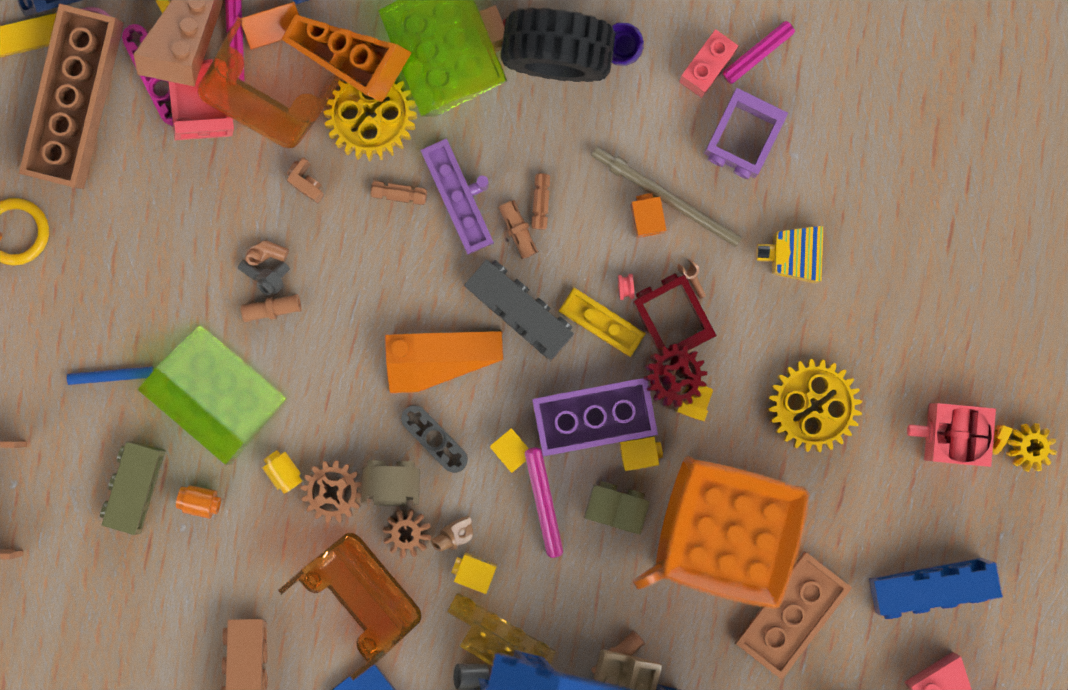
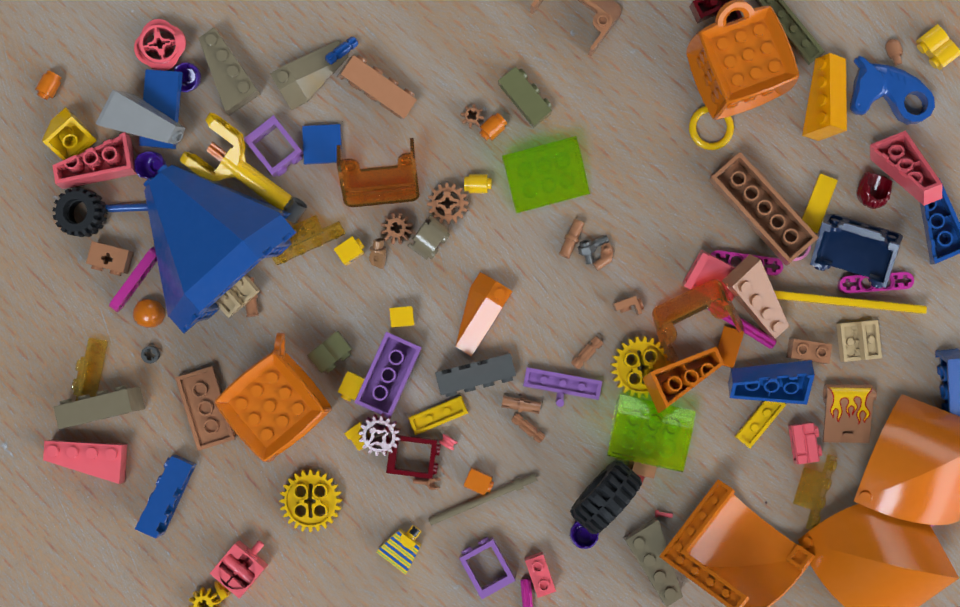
camera: 125 degrees right, 0 degrees up
(109, 375) = (594, 127): blue bar -> none
(210, 533) = (470, 121): none -> nougat gear
(424, 418) = (423, 277): dark grey beam -> none
(544, 502) = (361, 314): dark pink axle -> none

